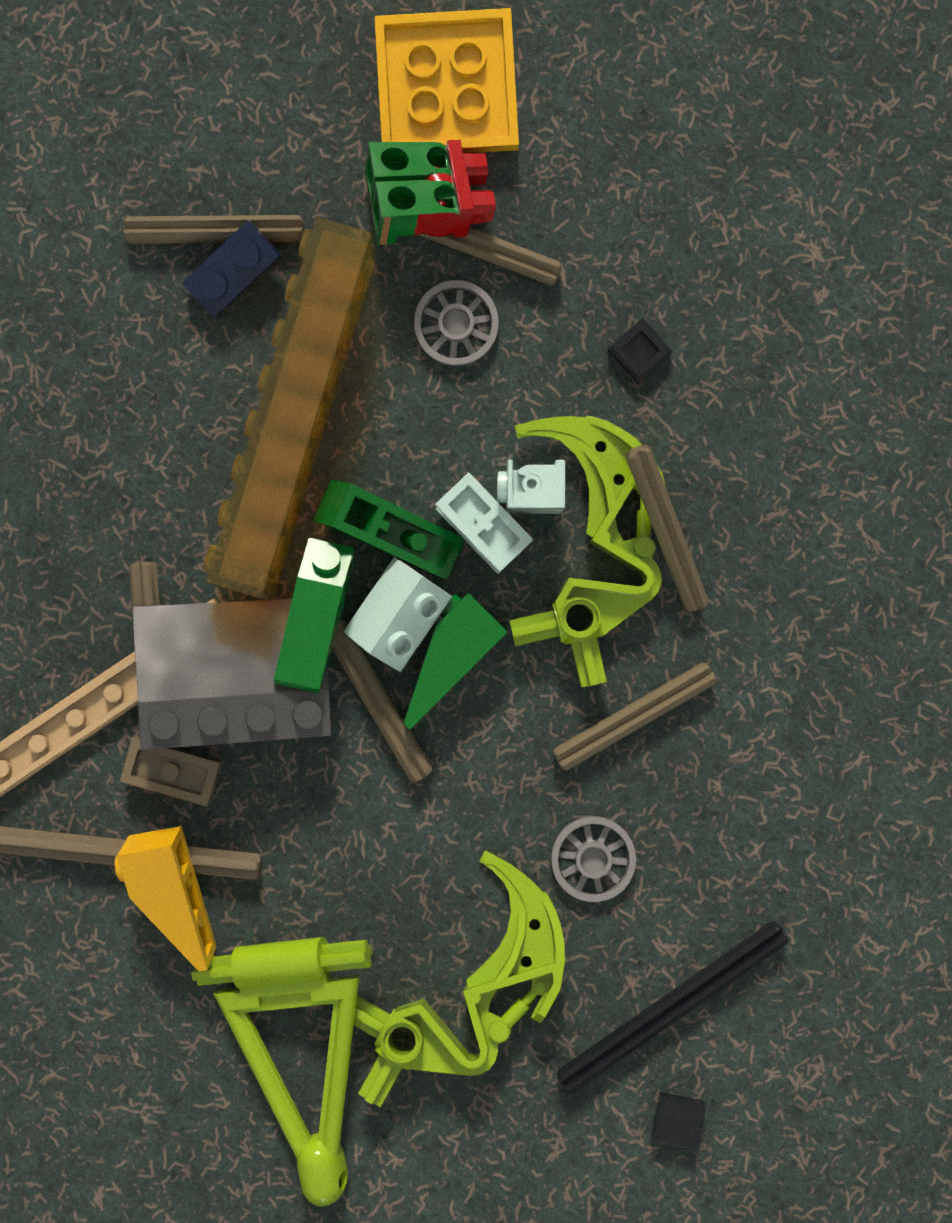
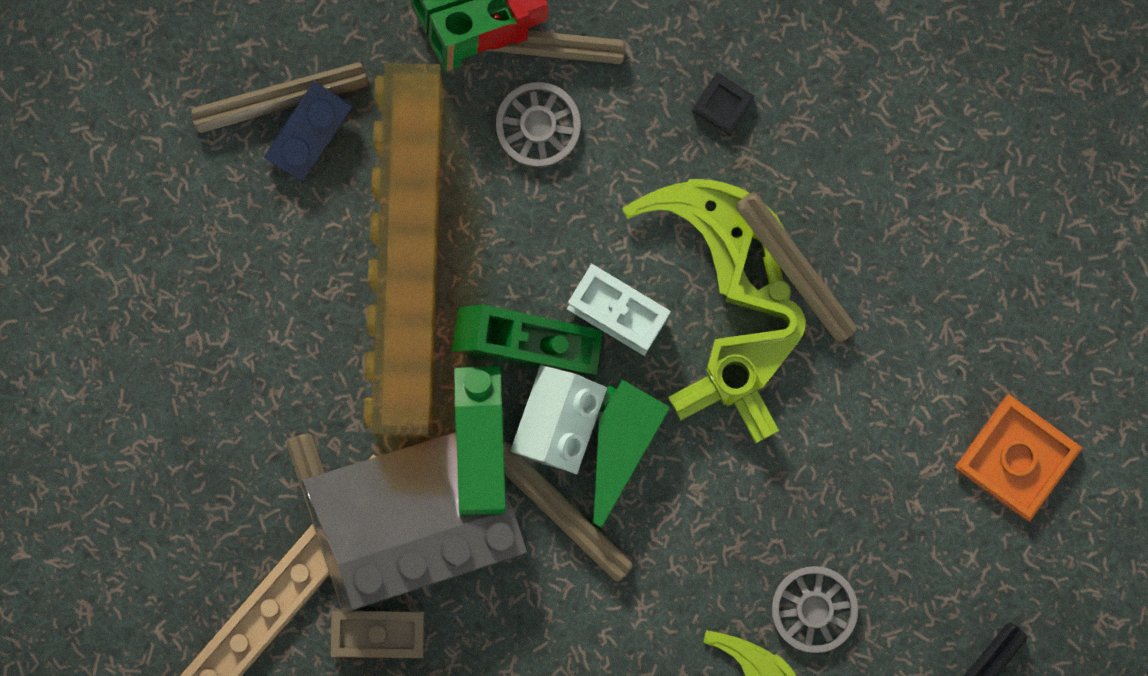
camera: 15 degrees left, 5 degrees down
(532, 488) = (656, 263): light aqua hinge -> none
(634, 716) = (815, 458): dark tan axle -> none
(827, 767) = (1018, 457): none -> orange tile

